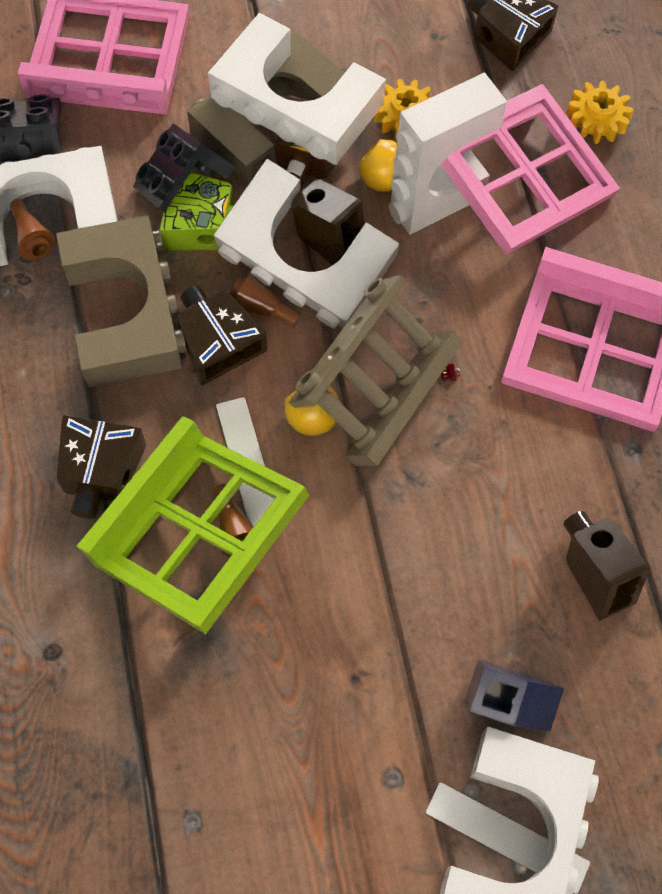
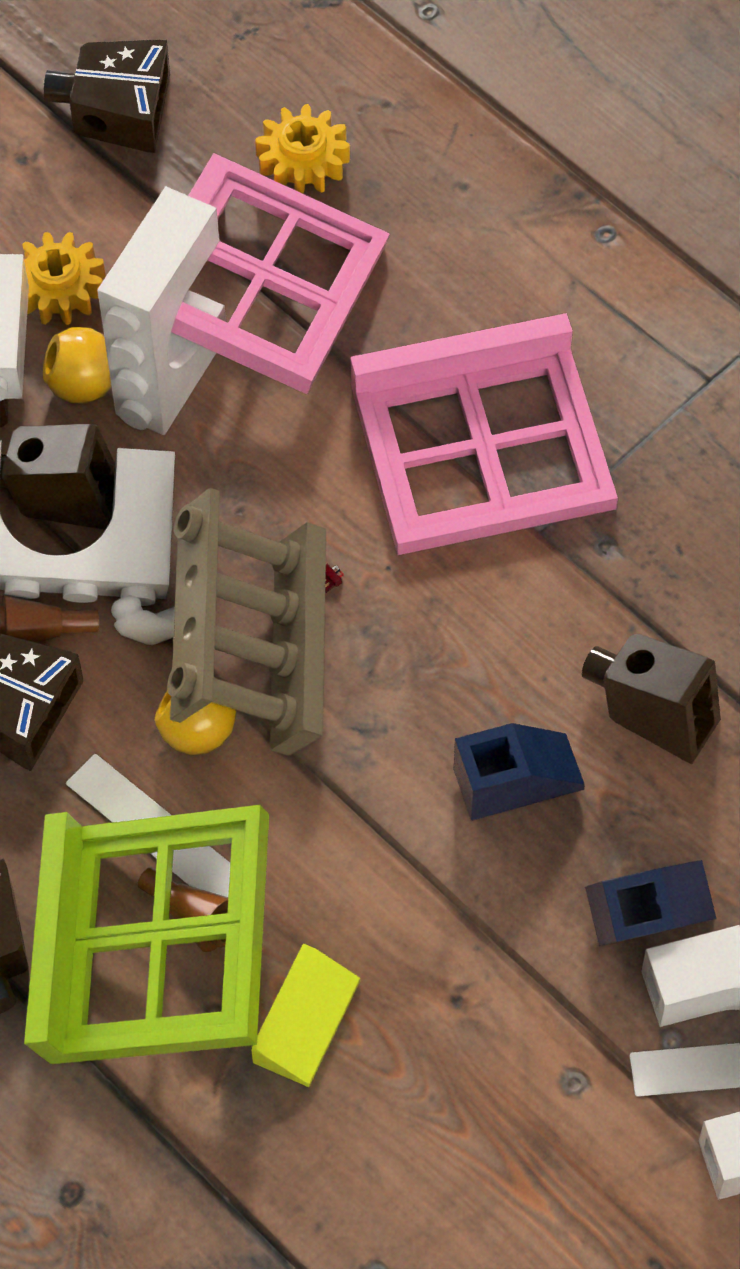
camera: 30 degrees left, 5 degrees down
(255, 631) = (304, 1016): none -> neon yellow slope
(316, 334) = (142, 624): none -> white arm
(483, 557) = (513, 768): none -> dark blue slope

